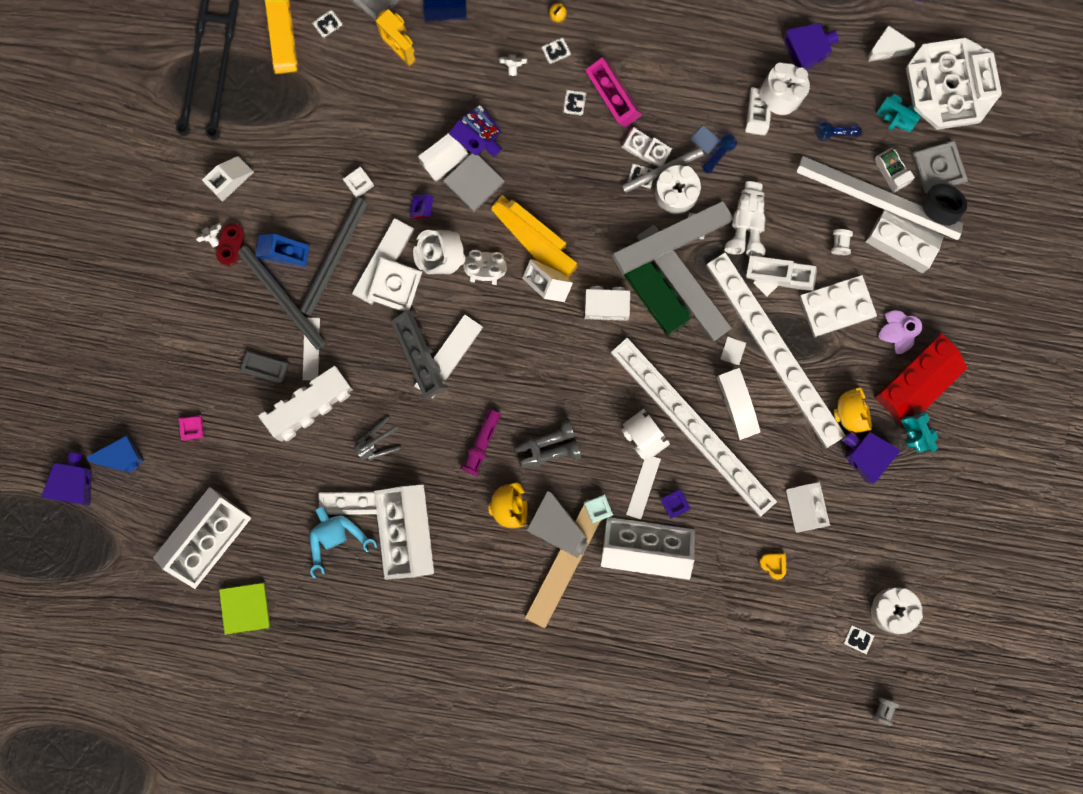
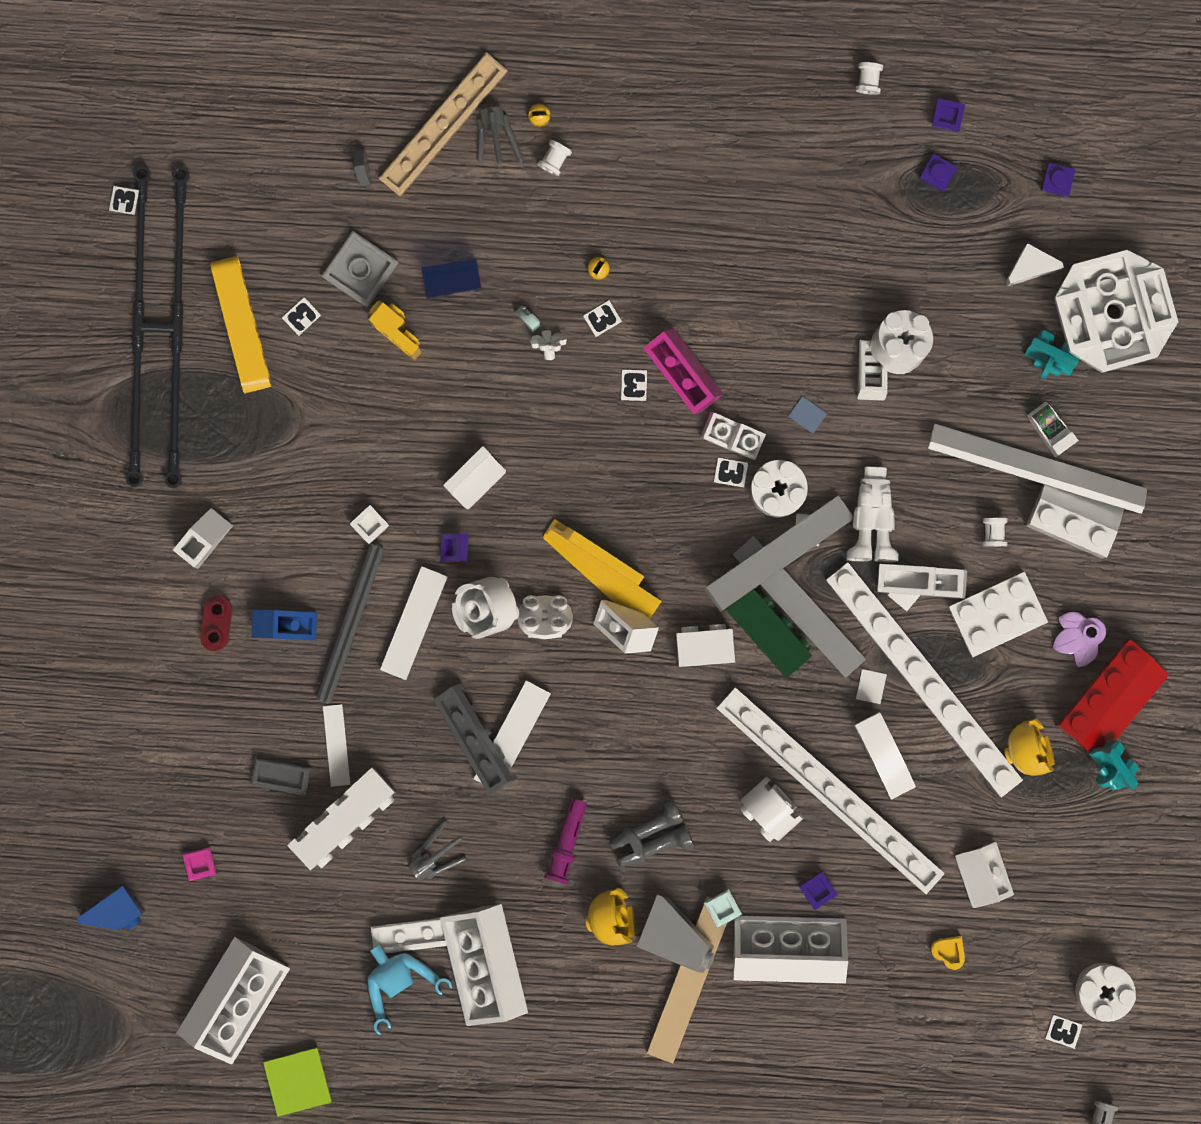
camera: 10 degrees left, 5 degrees up
(69, 482) = (57, 950): dark purple torso -> none
(210, 235) = (189, 614): white plant -> none
(281, 297) = (291, 685): dark grey axle -> none
(394, 285) = (432, 653): white tile -> none
(474, 181) = (516, 505): light grey tile -> none
(477, 132) = (515, 445): dark purple torso -> none
(500, 43) = (528, 318): none -> light aqua tile
(643, 487) = (776, 874): white sticker -> none
(656, 172) = (755, 464): light grey bar -> none
(726, 144) = (836, 419): clear blue piece -> none
(809, 45) = (929, 277): dark purple torso -> none
(826, 131) = (962, 387): clear blue piece -> none
(869, 455) = (1054, 801): dark purple torso -> none
(939, 165) = (1111, 418): light grey tile -> none
(951, 196) = (1128, 455): black tyre -> none

